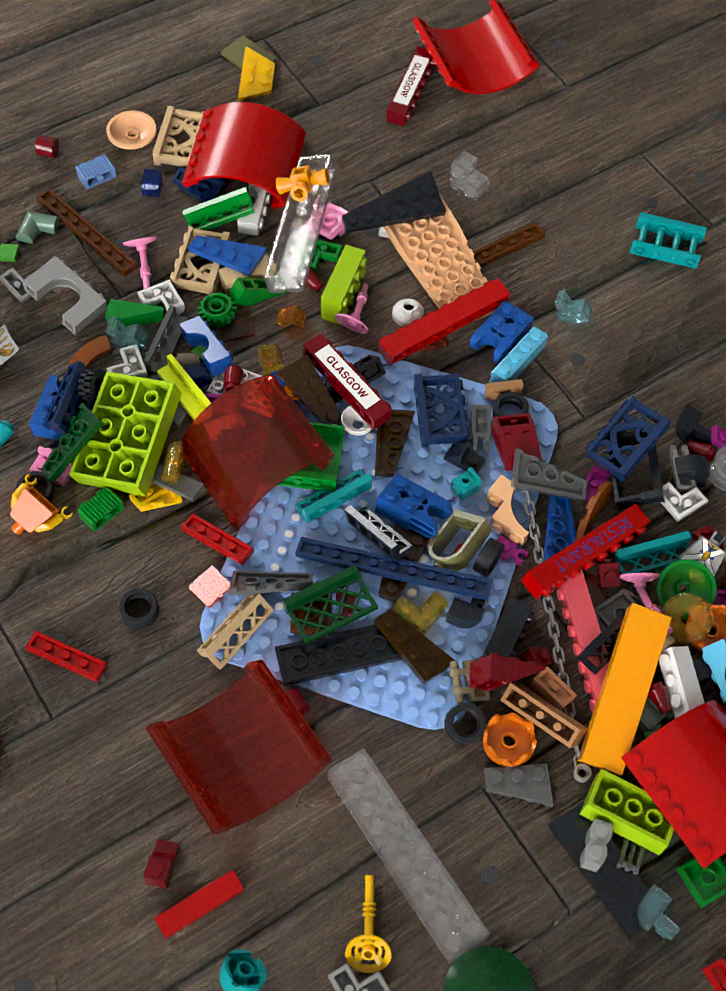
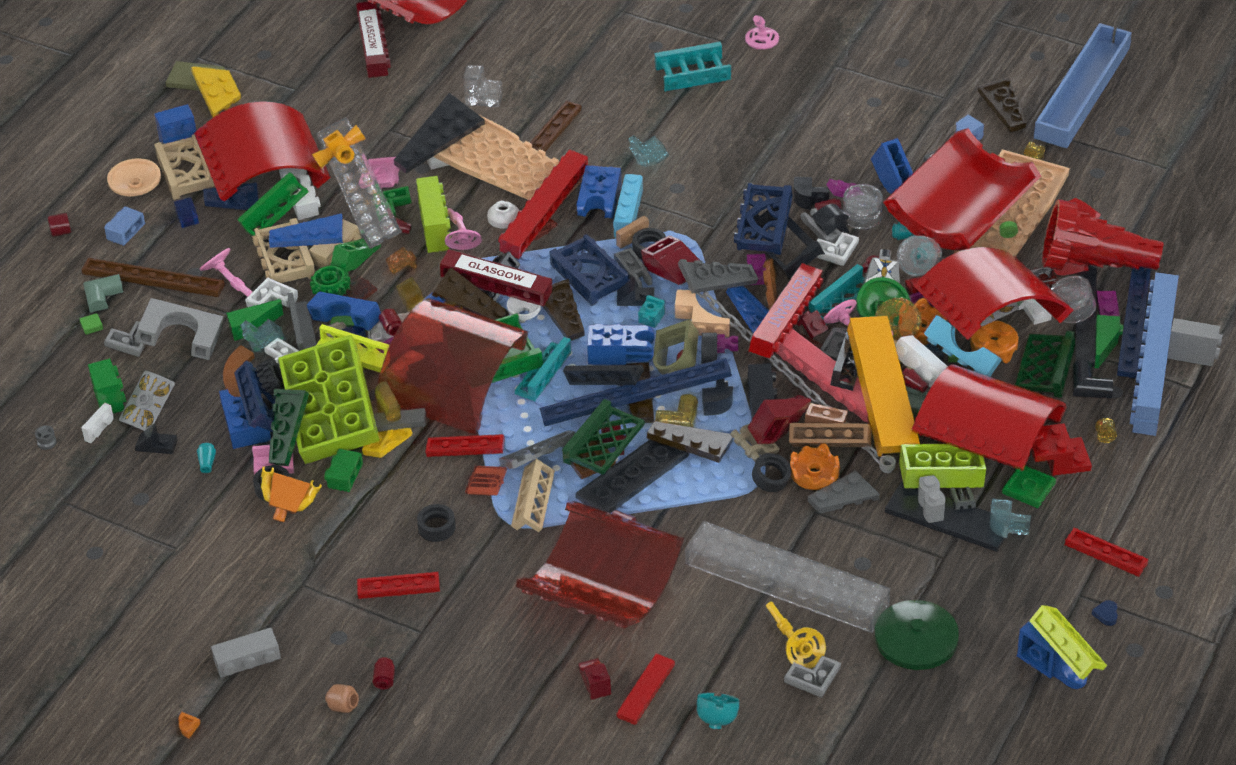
camera: 25 degrees left, 15 degrees down
(194, 95) = (175, 124): none -> blue brick

